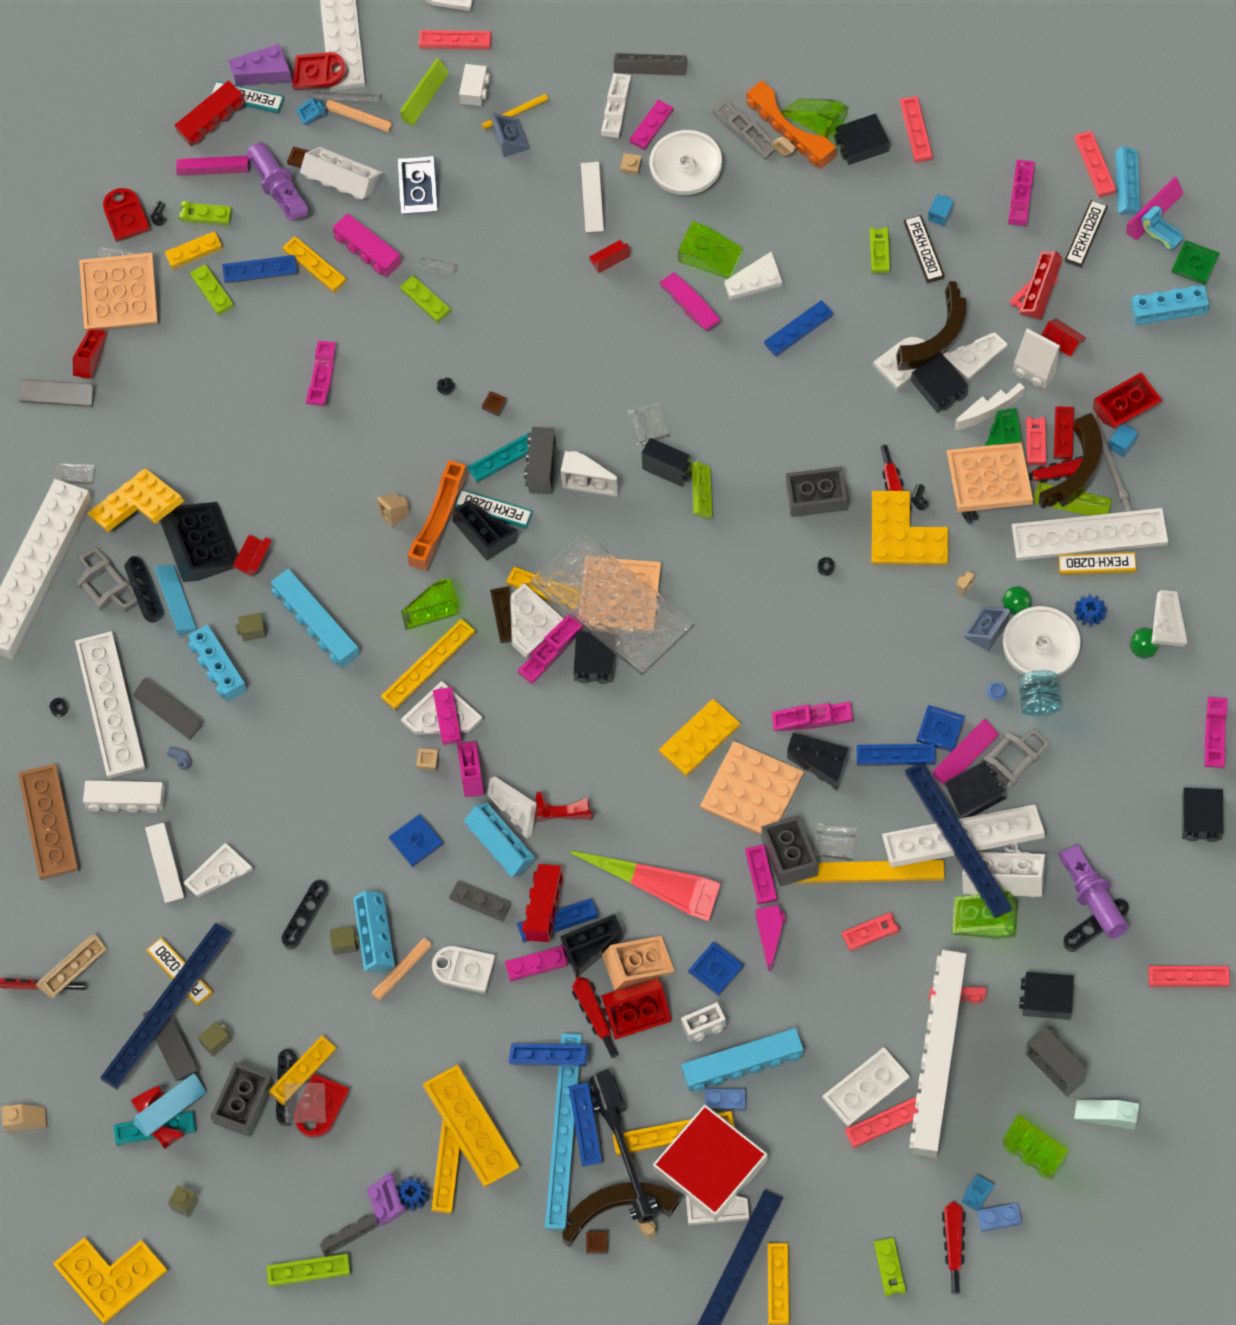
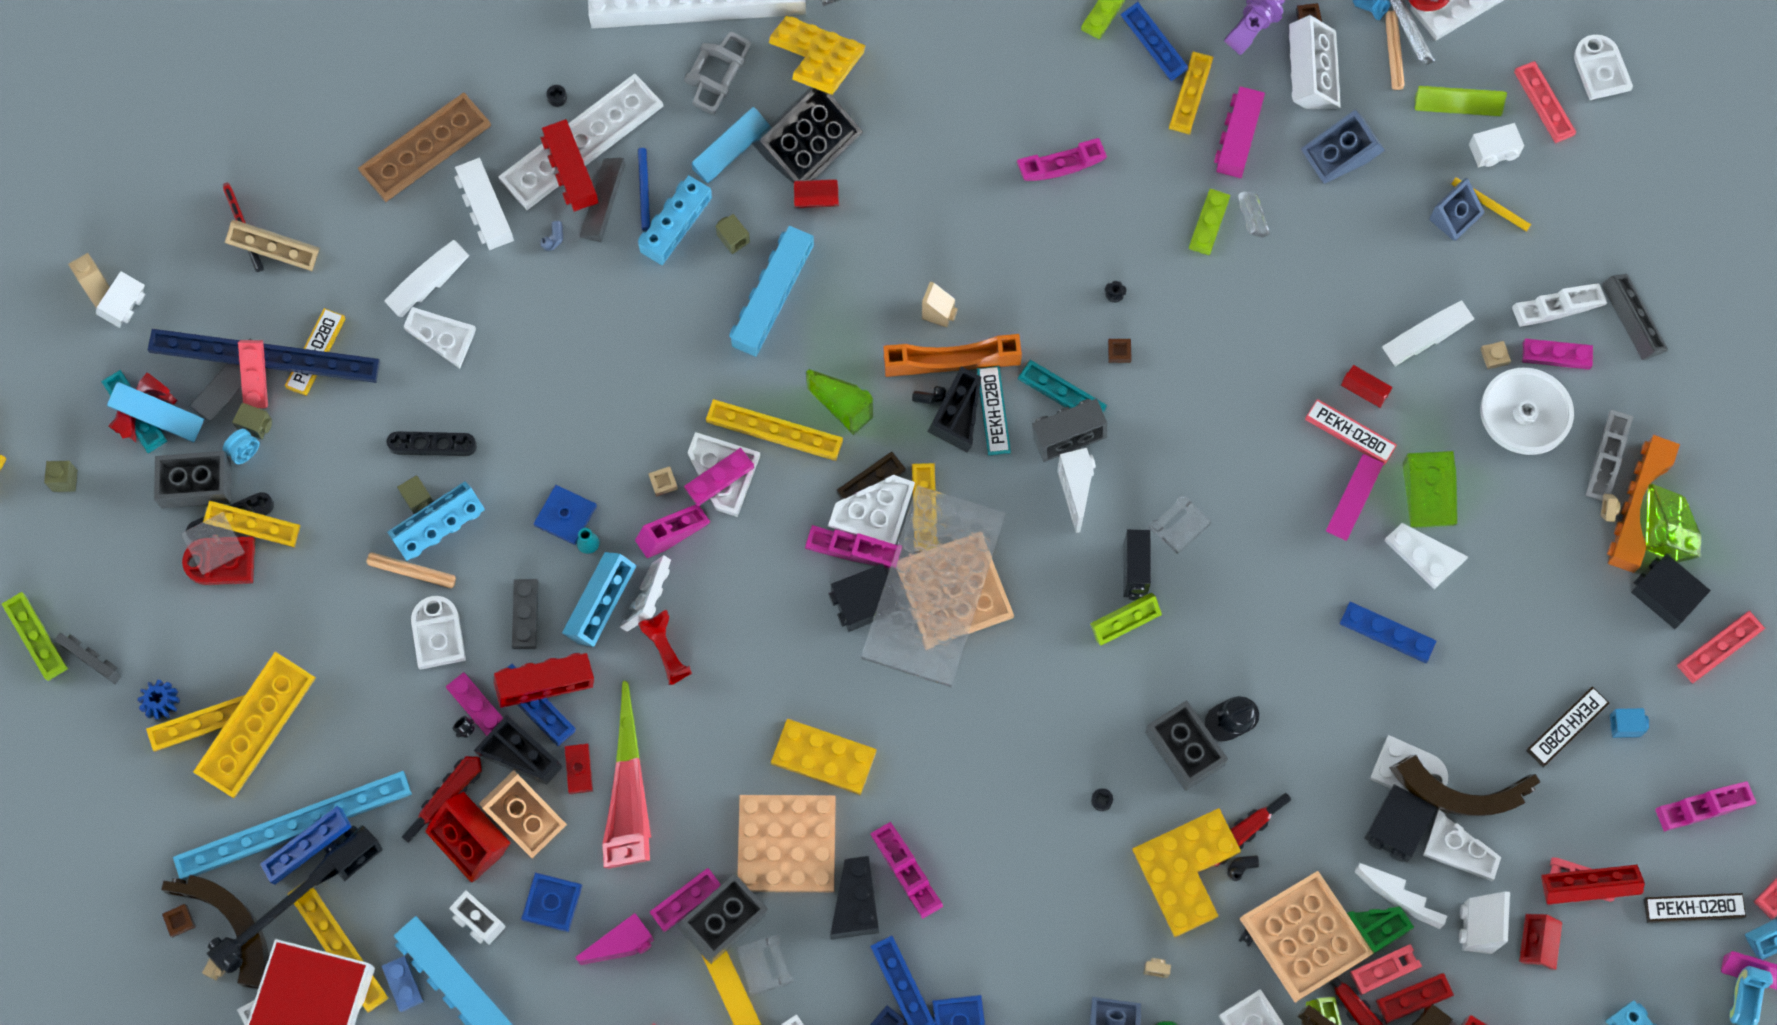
camera: 60 degrees right, 5 degrees up
(54, 1099) = (121, 299): none -> white brick
(130, 716) = (569, 164): none -> red brick
(150, 608) = (723, 106): black beam -> none
(175, 676) = (644, 191): none -> blue bar
(178, 1018) = (253, 373): none -> coral plate
(232, 1053) = (241, 446): none -> medium azure wheel
(385, 1200) = (138, 676): medium lavender plate -> none
(447, 831) = (587, 541): none -> teal cone
(461, 547) = (929, 398): none -> black arm
(548, 978) = (464, 727): none -> black plate
(548, 1055) = (369, 768): blue plate -> none
(624, 910) = (578, 768): none -> red plate
(638, 282) = (1350, 432): none -> tile
(809, 454) = (1232, 718): none -> black piece
(879, 250) = (1537, 676): lime plate -> none

